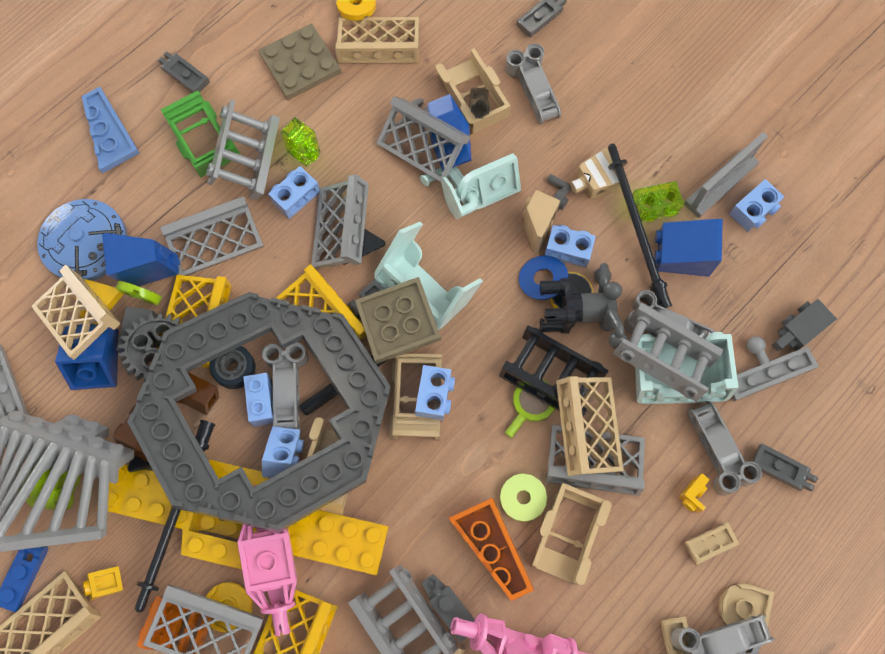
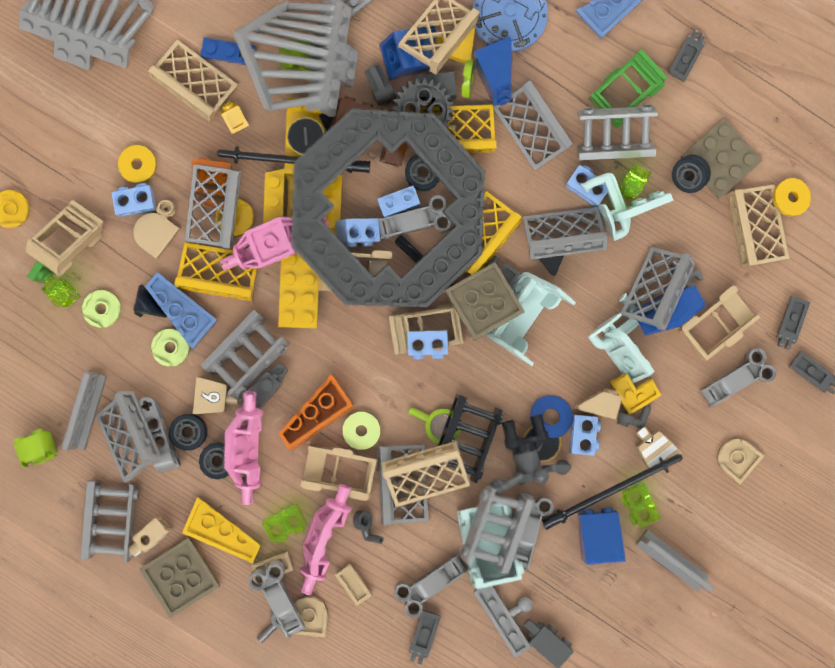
camera: 75 degrees right, 15 degrees up
(122, 395) = (381, 88): none -> dark grey piece
(145, 495) = (303, 134): none -> black tile
(319, 84) = (698, 166): none -> wheel
(331, 167) = (621, 212): none -> light aqua plate
(479, 102) = (704, 332): clear smoke piece -> none
(484, 24) = (792, 321): none -> dark grey hinge
(534, 179) = (634, 397): none -> yellow tile
(619, 619) = (282, 520): none -> clear neon green brick
(620, 100) = (738, 459): none -> tan tile
(635, 517) = (362, 521): none -> dark grey plate
(647, 573) = (319, 533): none -> bright pink plate
(695, 489) = (393, 566): yellow bracket -> none
(755, 204) = (656, 589): light blue brick -> none

